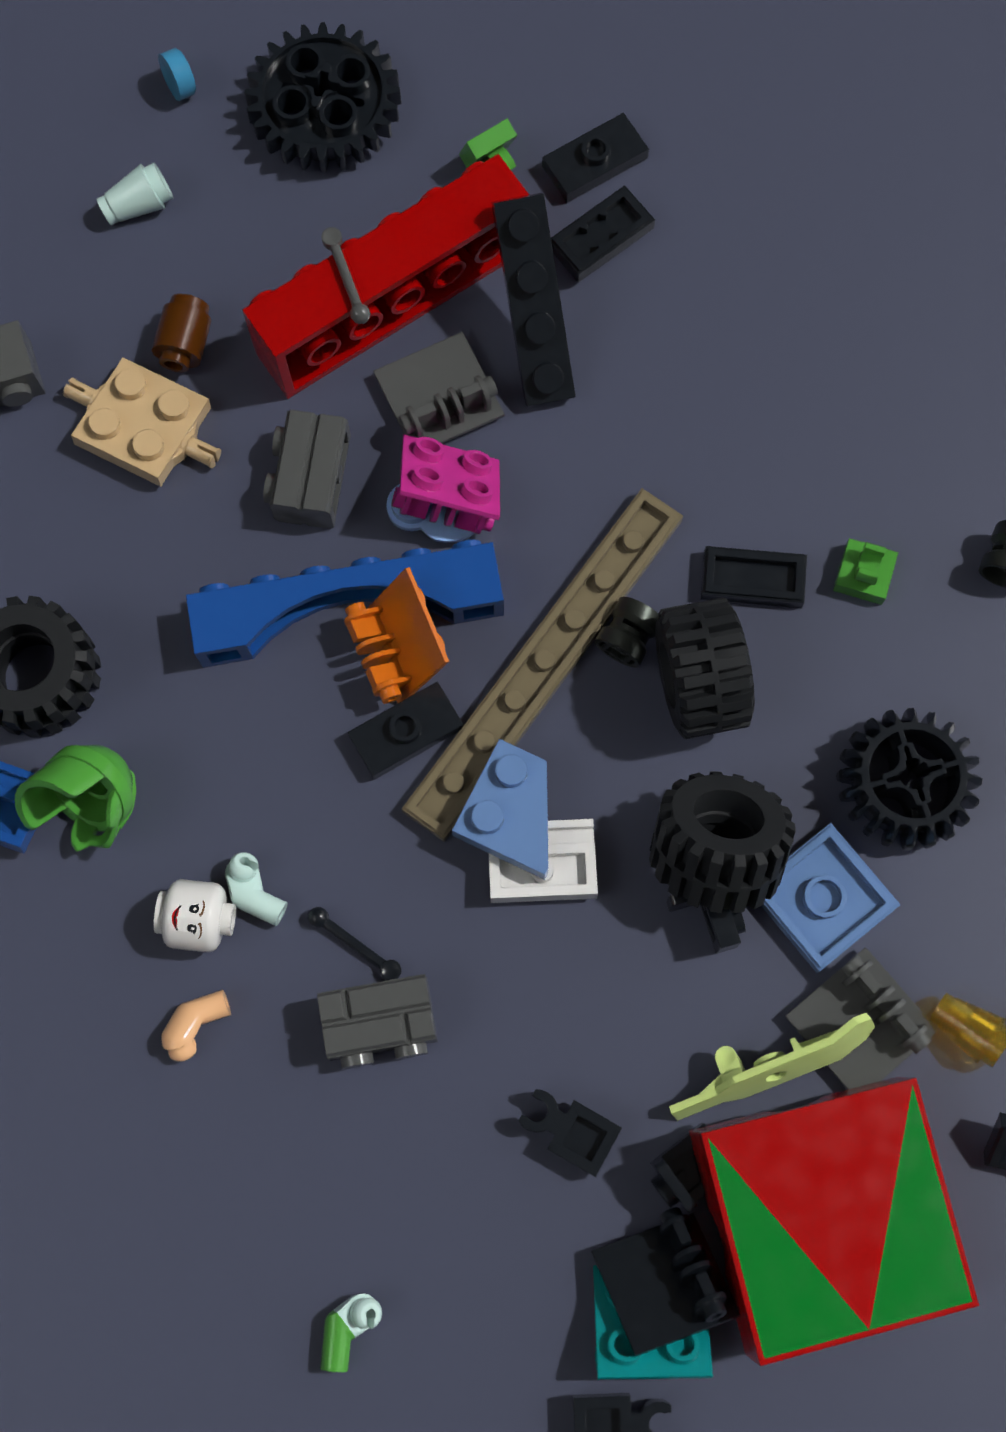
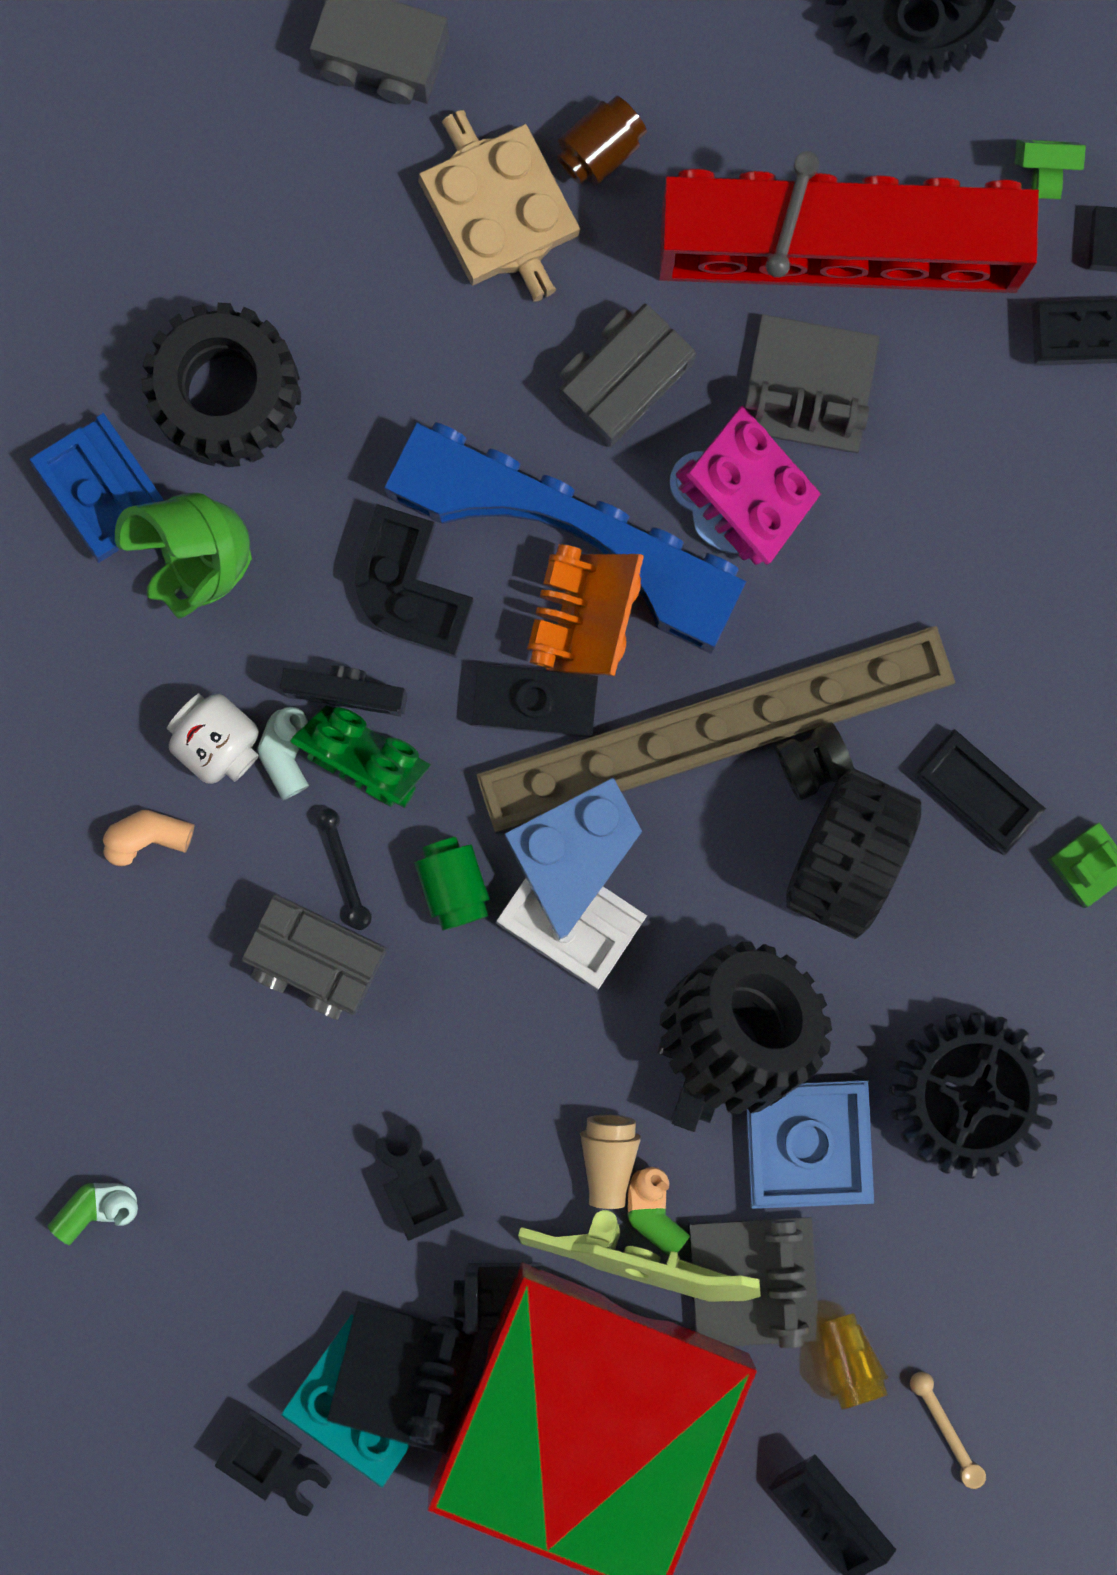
camera: 35 degrees right, 10 degrees up
(258, 727) = (391, 589): none -> black plate
(264, 815) = (344, 688): none -> black plate
(286, 848) = (342, 742): none -> green hinge
(439, 895) = (452, 883): none -> green brick
(533, 298) = (967, 362): black plate -> none
(693, 1008) = (609, 1157): none -> tan cone
(749, 1028) = (648, 1210): none -> arm

